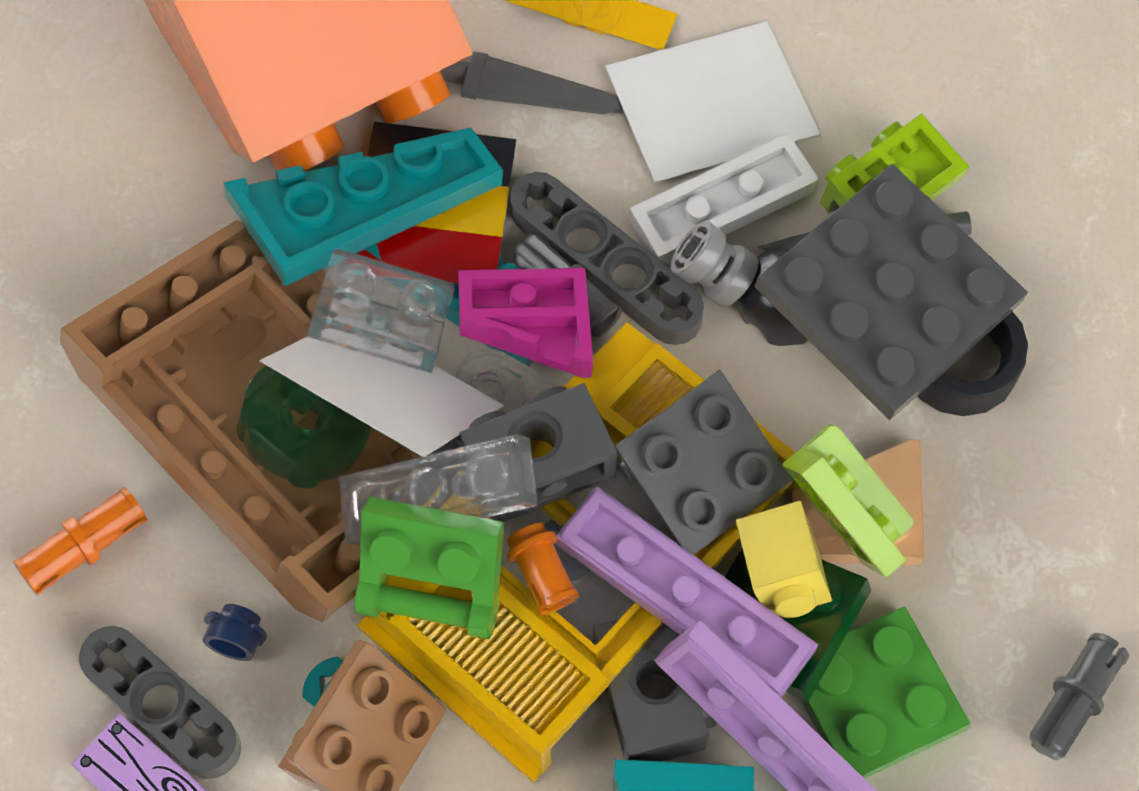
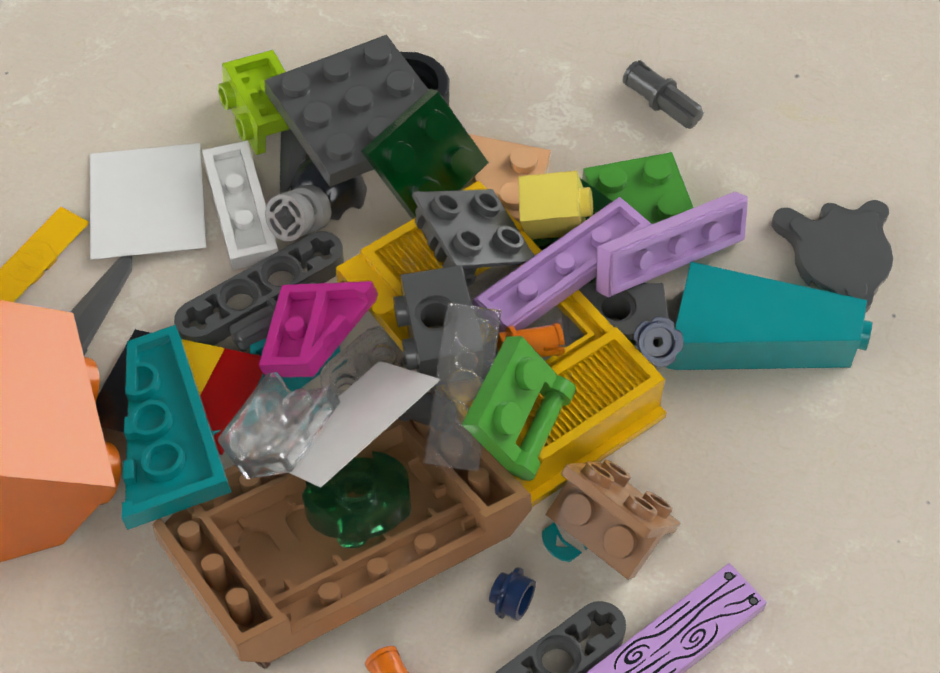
camera: 80 degrees left, 10 degrees down
(586, 737) = (671, 341): none -> plate
(834, 377) = (424, 151): none -> dark green plate
(851, 498) = (503, 161): lime bracket -> none

